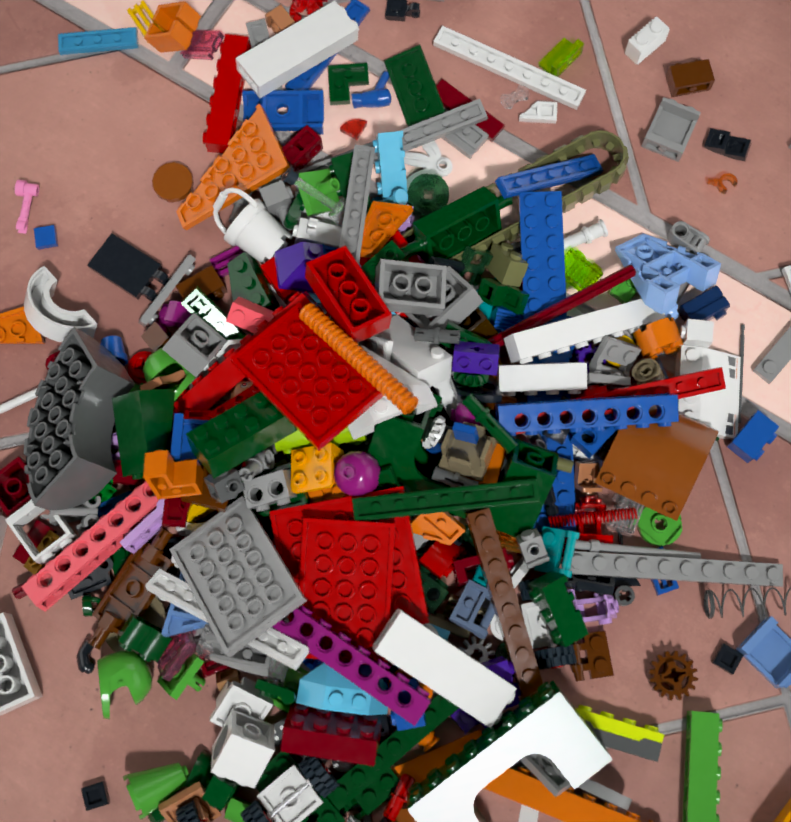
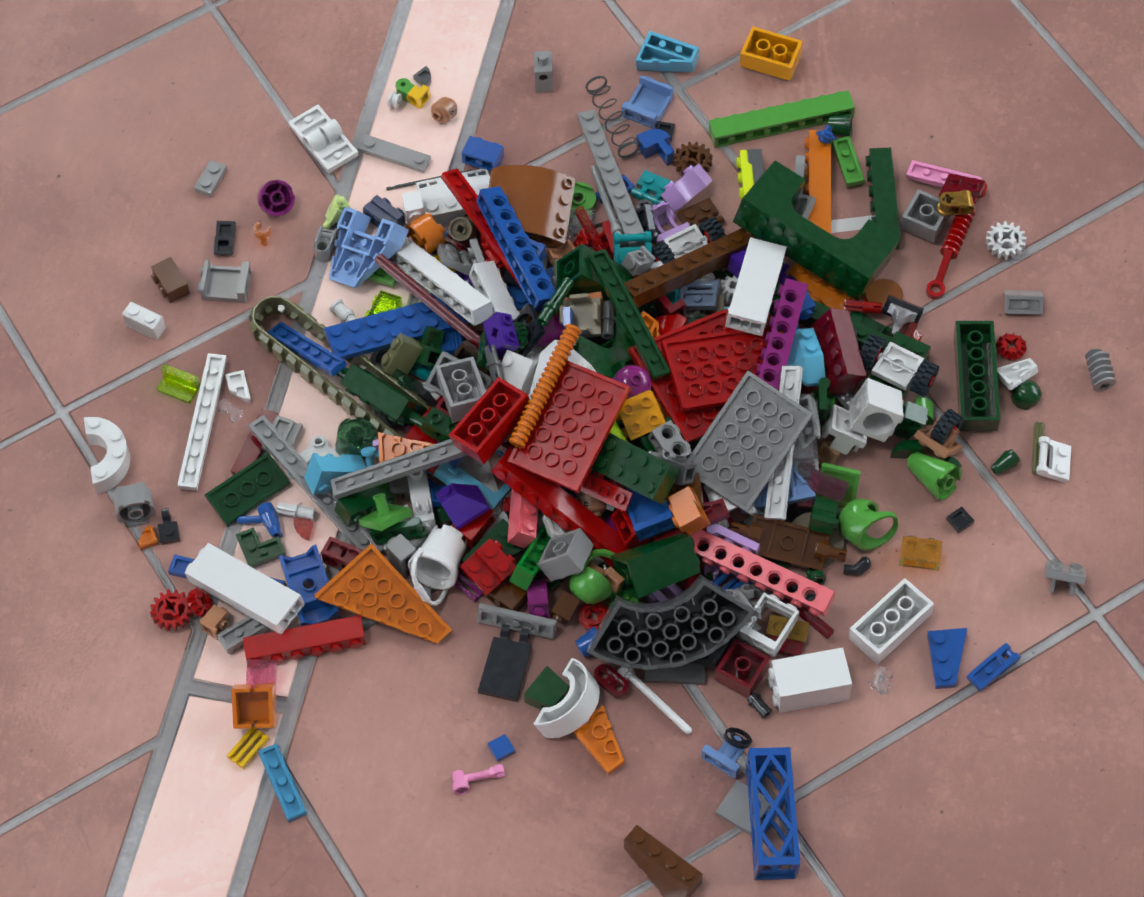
camera: 110 degrees left, 15 degrees down
(70, 732) = (920, 553): none -> clear yellow brick
(79, 294) = (546, 690): none -> dark green torso
(172, 182) = (408, 659): dark orange tile -> none
(222, 273) = (488, 566): none -> red plate
(337, 208) = (398, 494): clear piece -> none
(374, 125) = (296, 511): none -> white axle
(557, 608) = (676, 231): dark green wedge -> none
(633, 651) = (686, 187): none -> lavender brick
(653, 621) = (650, 183): none -> teal plate
(713, 639) = (654, 142): none -> blue brick
(729, 263) = (335, 210): none -> yellowish green rock
(757, 200) = (276, 198): none -> magenta cylinder

